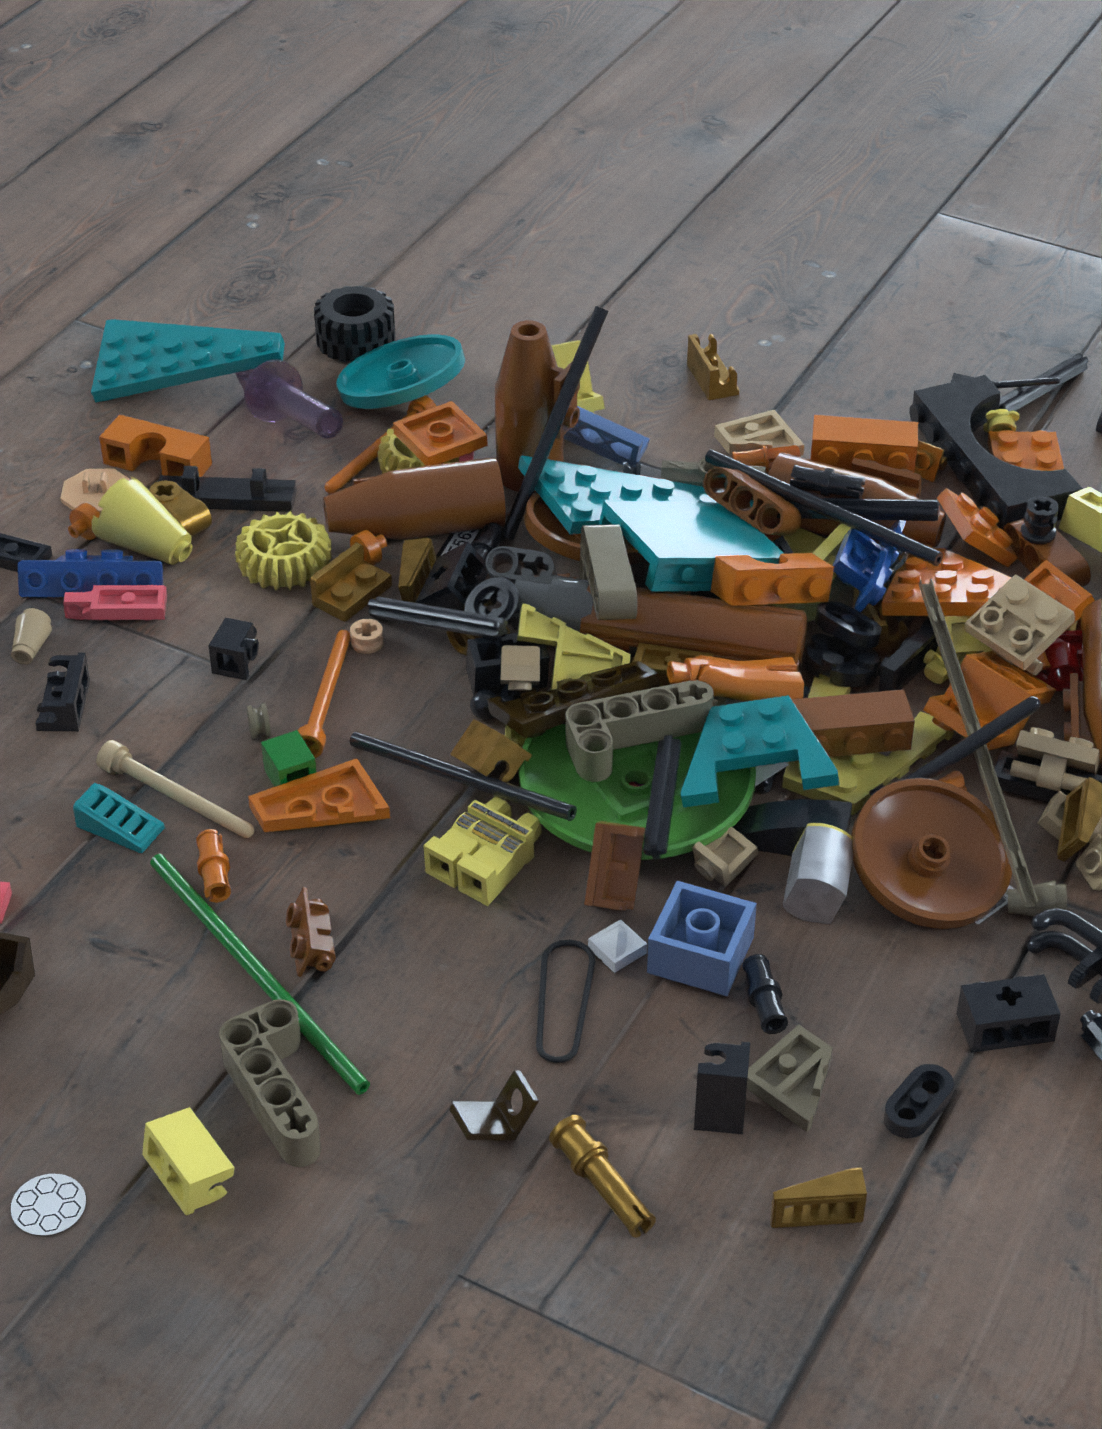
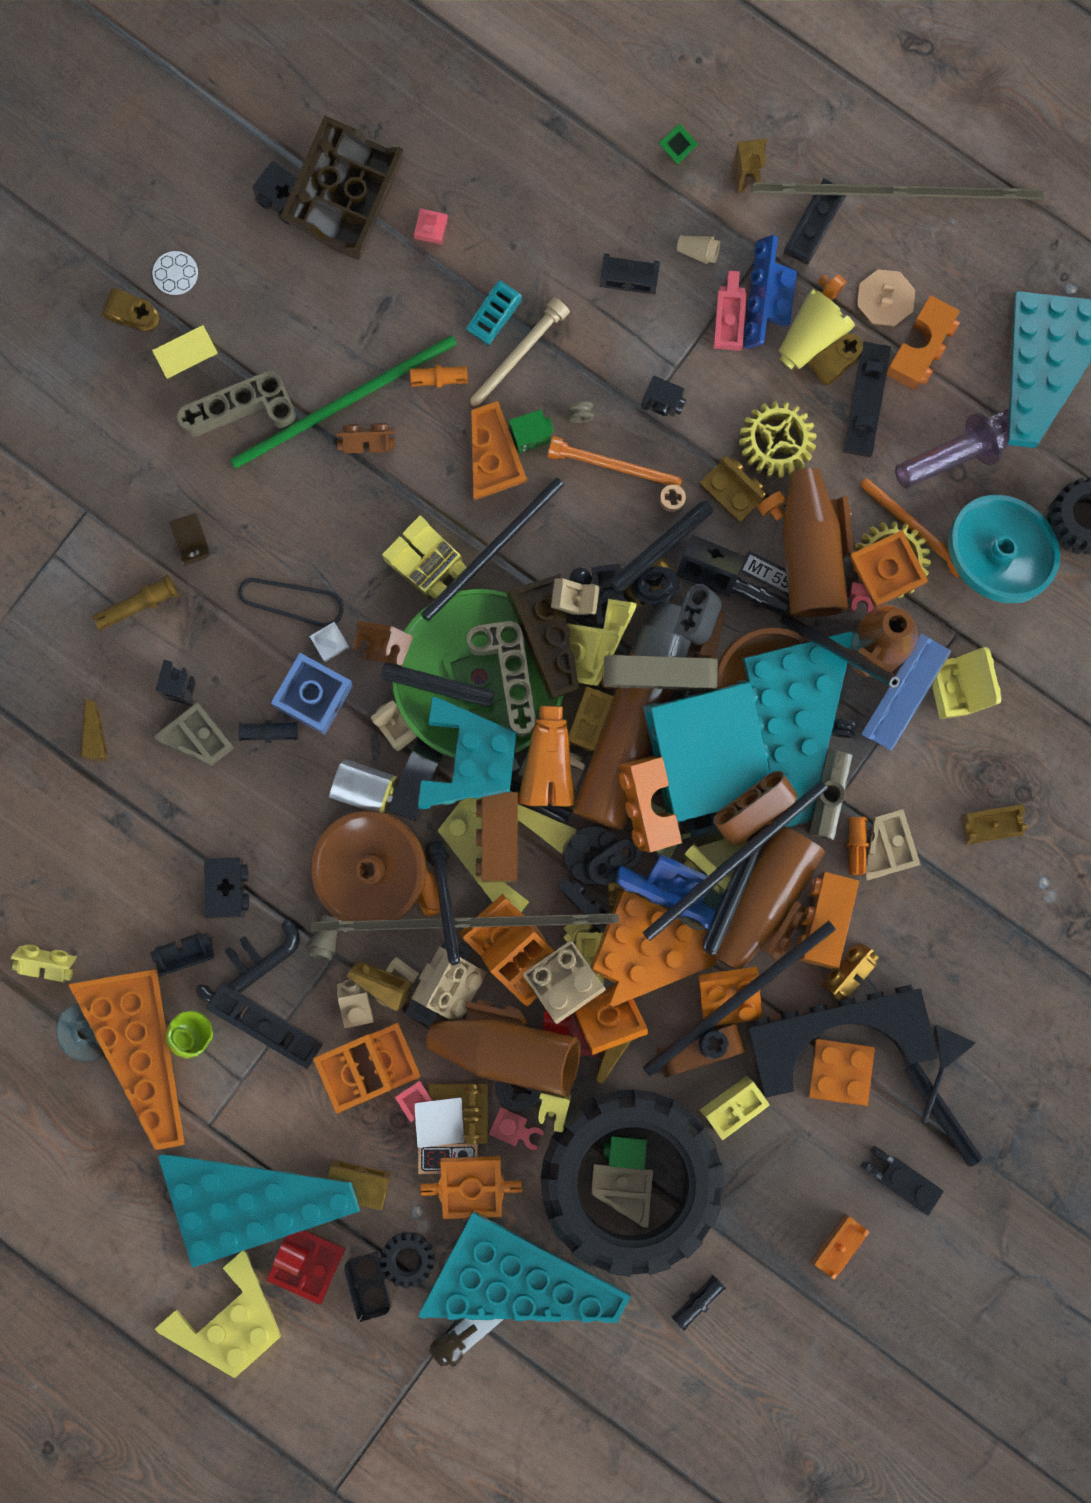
camera: 95 degrees right, 40 degrees up
(116, 1239) = (126, 310): none -> pearl gold piece
(416, 564) = (735, 538): pearl gold slope -> none
(484, 747) = (509, 570): pearl gold hinge -> none
(827, 482) = (761, 871): black pin -> none
(915, 1104) = (164, 812): black plate -> none
(983, 501) = (739, 998): none -> black piece
(1001, 420) = (882, 1060): light yellow plate -> none

